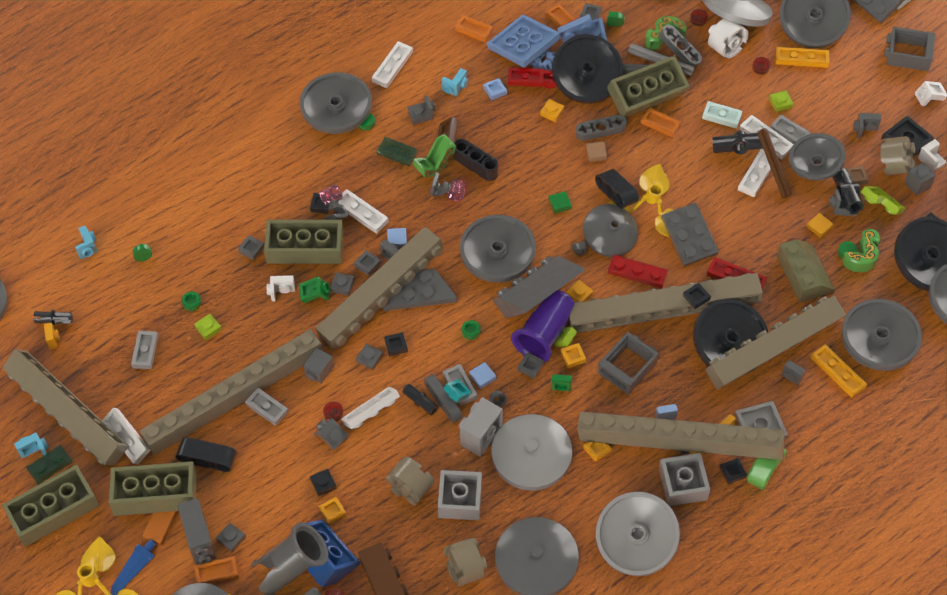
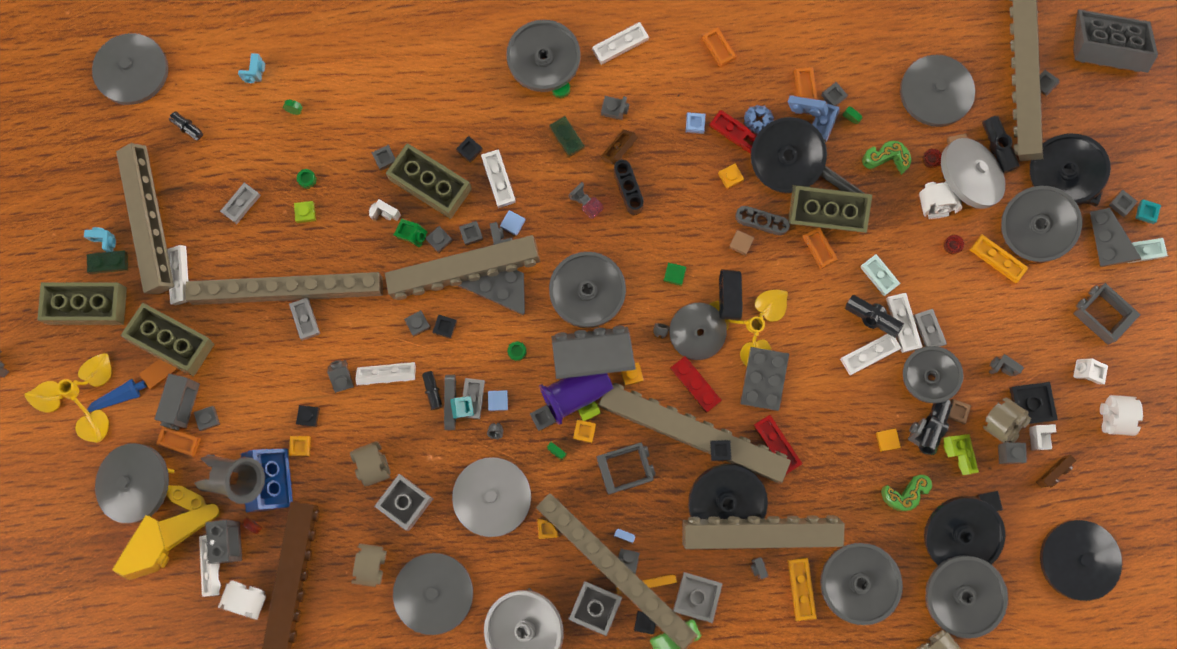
camera: 30 degrees right, 20 degrees up
(51, 336) = (173, 143): light orange plate -> none
(206, 454) = (230, 332): black beam -> none
(318, 366) = (368, 307): dark grey brick -> none
(331, 196) = (479, 152): leg -> none
(333, 410) = (356, 356): clear red tile -> none
(436, 158) = (593, 166): bright green animal -> none
(457, 84) = (666, 98): medium azure bracket -> none
(480, 426) = (459, 452): light grey brick -> none
(523, 40) = (752, 89): medium blue plate -> none
(656, 57) = (865, 183): light grey axle -> none
(674, 33) = (883, 179): dark grey beam -> none
(774, 163) = (888, 357): reddish brown axle -> none
(781, 101) = (945, 292): lime plate -> none
(804, 270) = (842, 477): olive slope -> none
(846, 246) = (894, 480): green tile -> none

